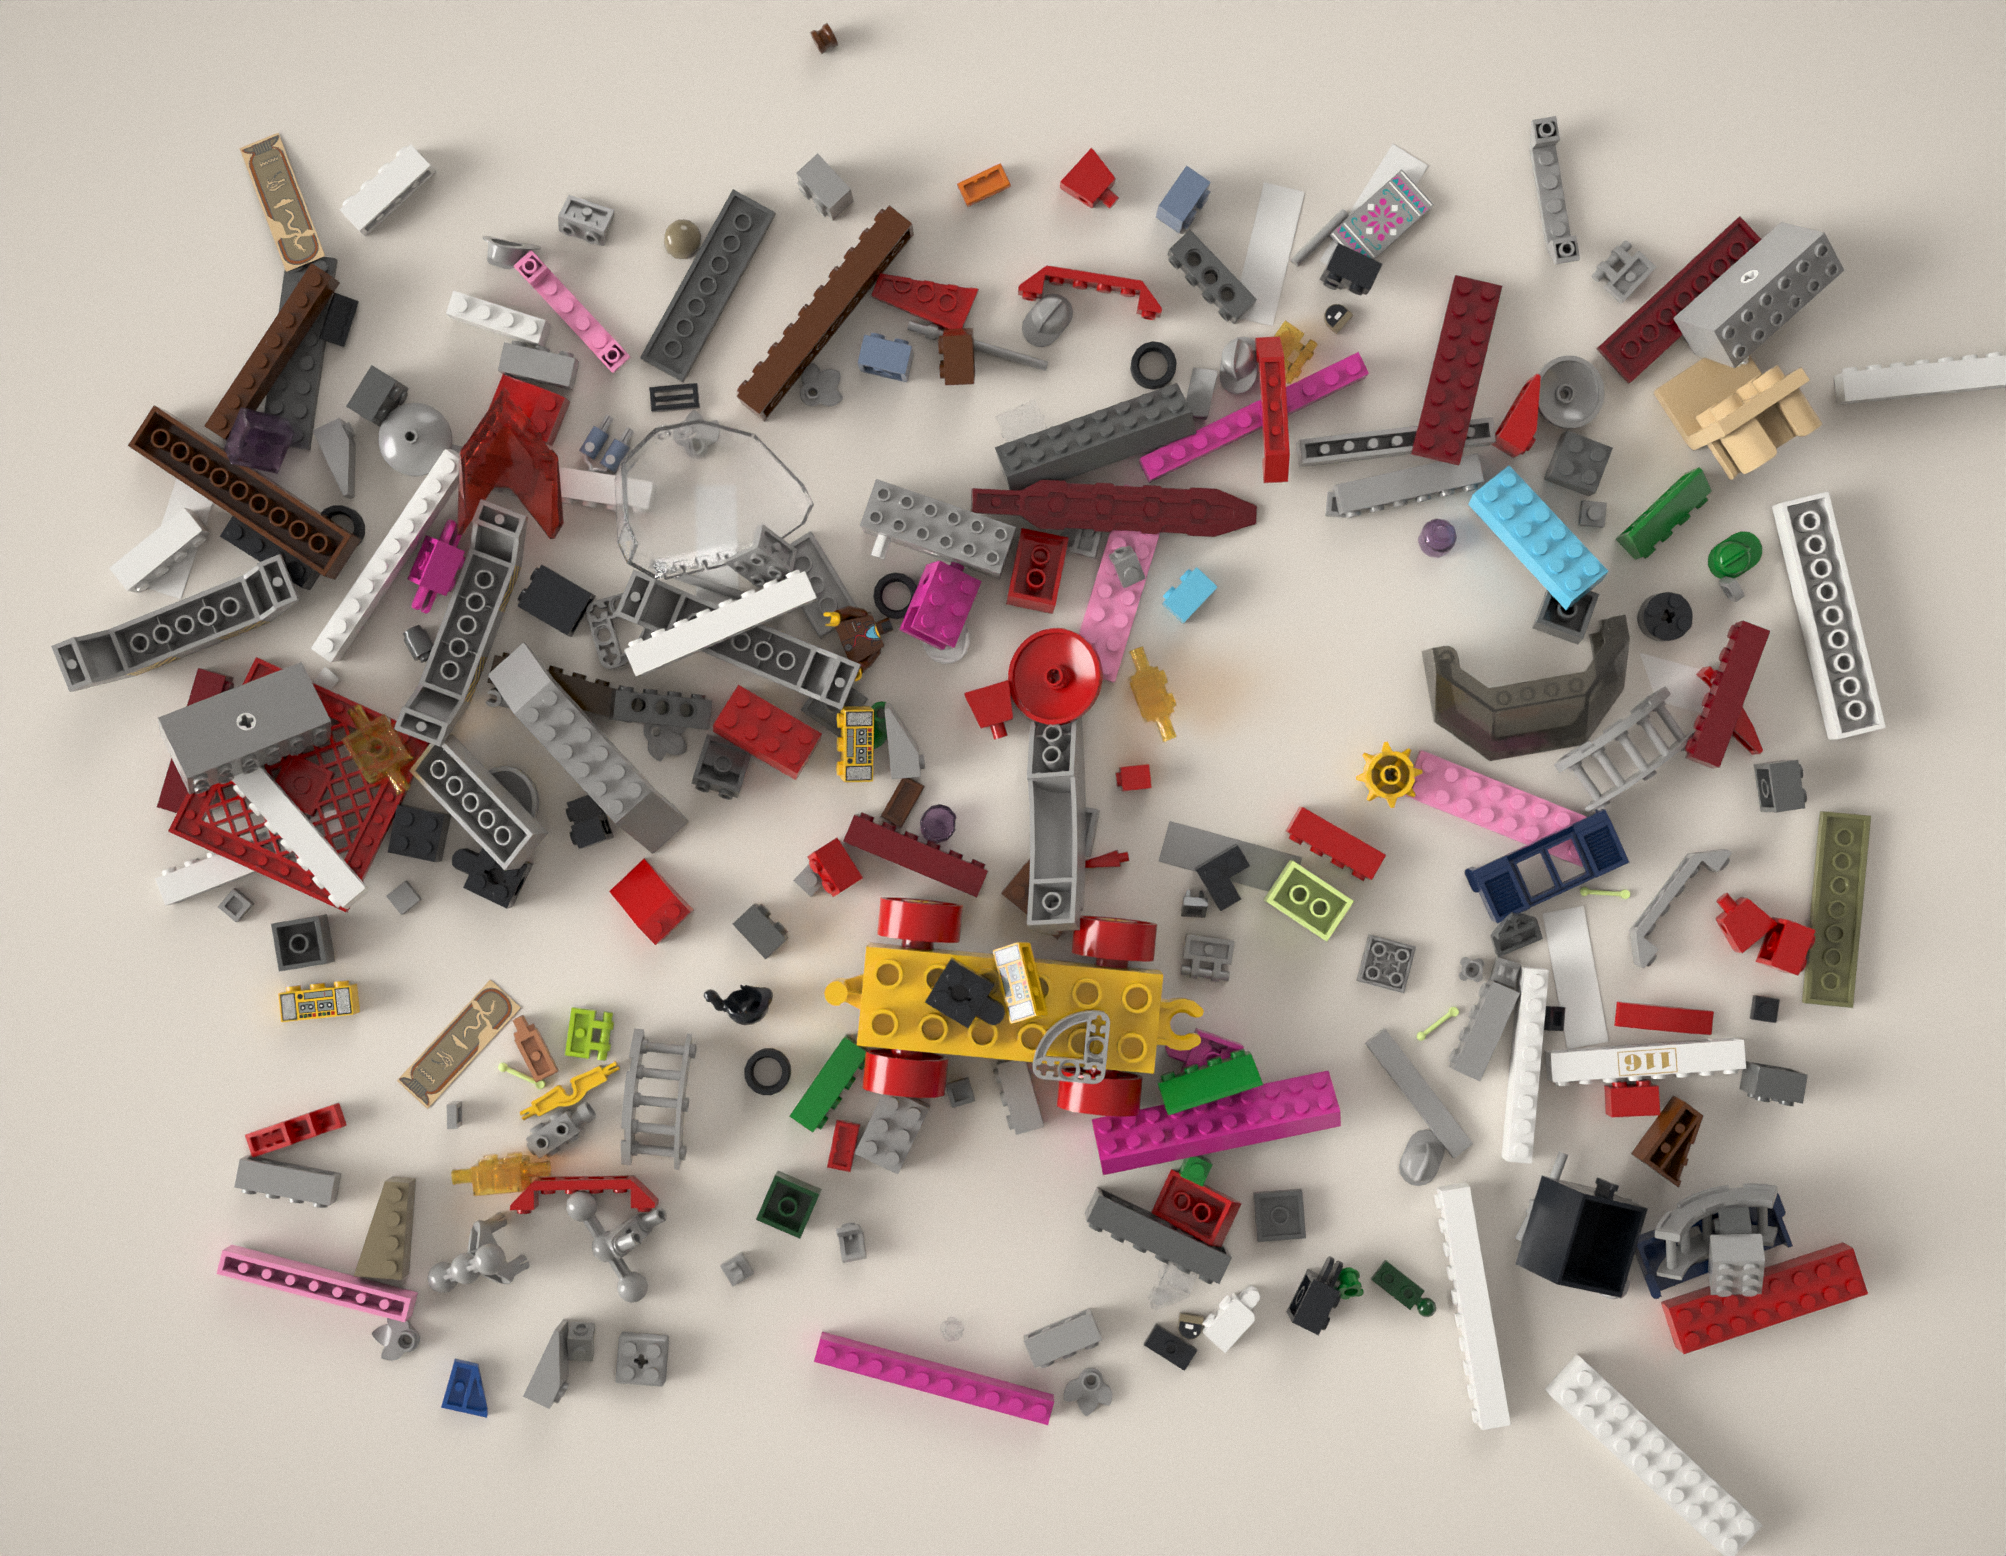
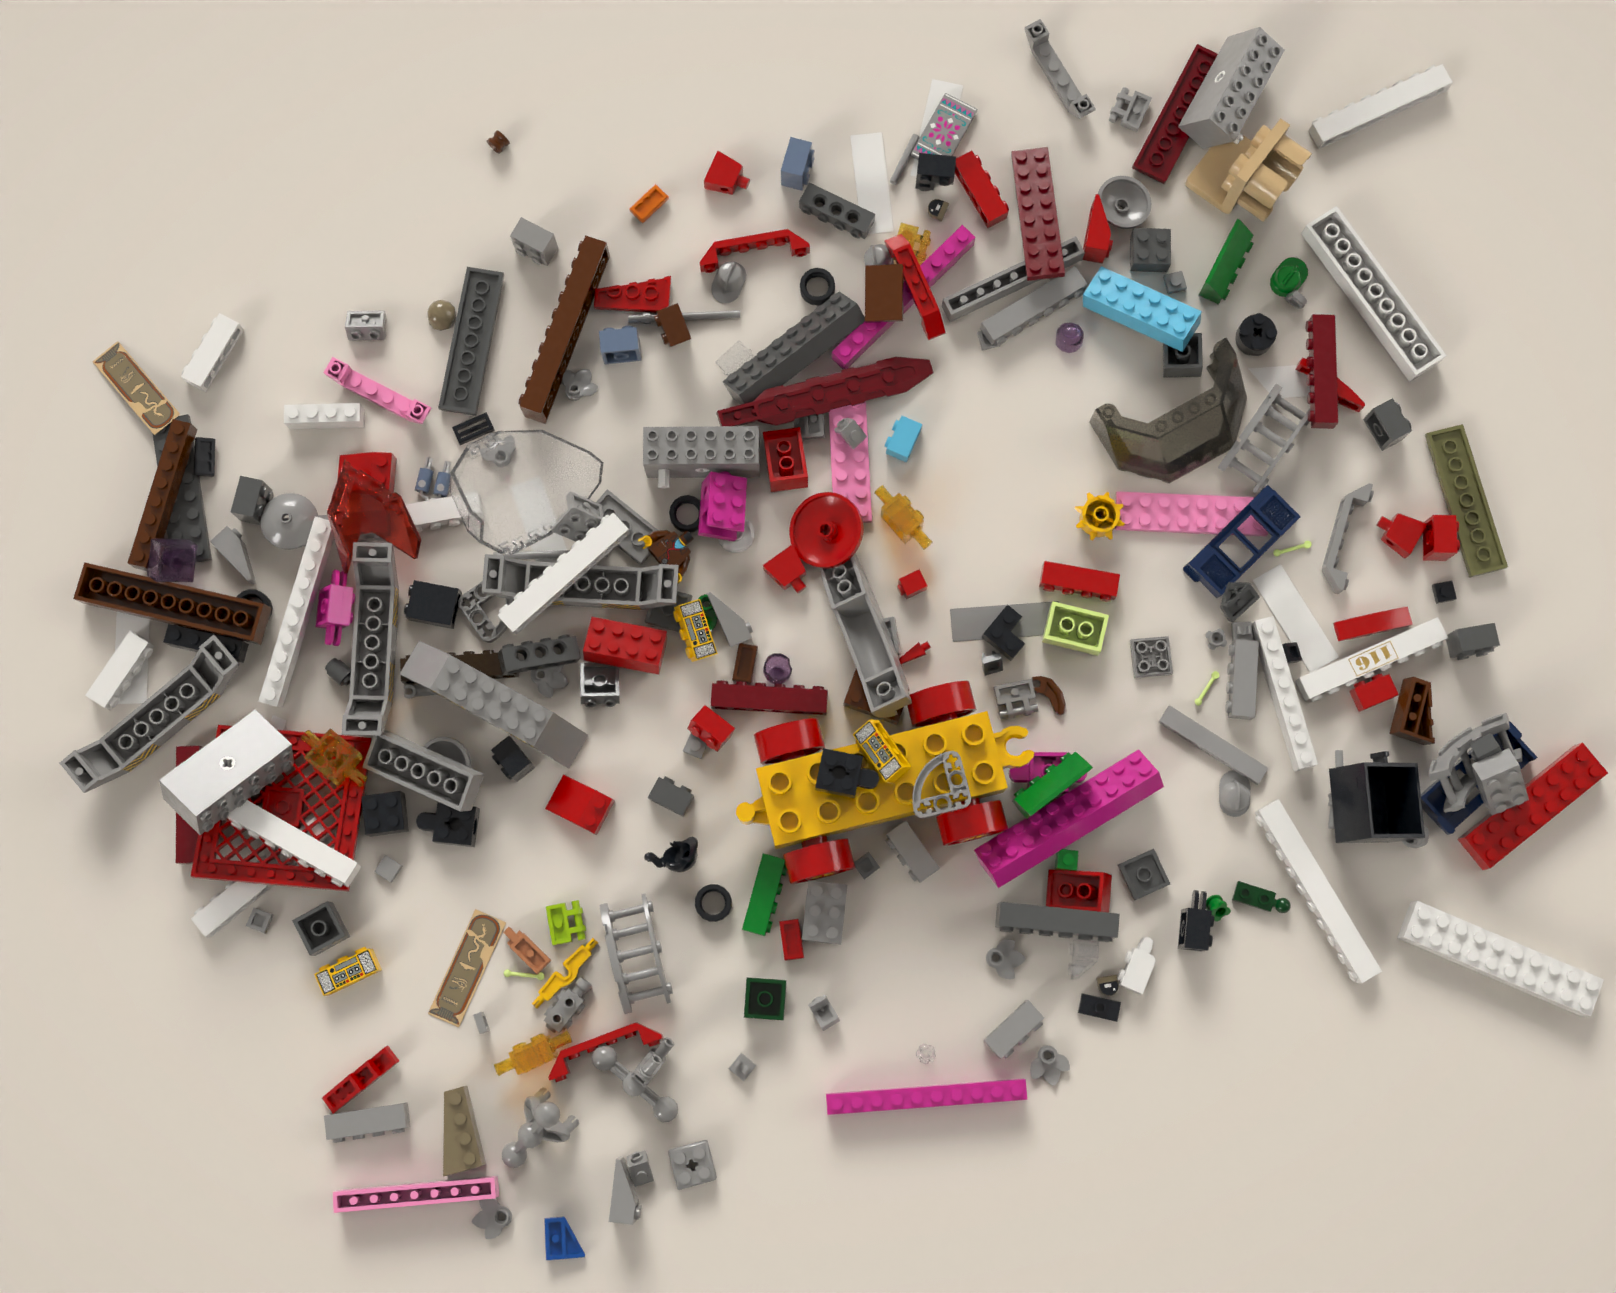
camera: 15 degrees left, 10 degrees down
(506, 253) = (314, 368): light grey piece -> none
(538, 365) = (364, 438): light grey brick -> none
(1085, 1256) = (1007, 959): none -> light grey plate
(1201, 391) = (856, 290): light grey slope -> none
(1229, 409) = (884, 293): none -> reddish brown tile
(1253, 962) = (1052, 691): none -> reddish brown piece
(1398, 311) = (980, 189): none -> red brick

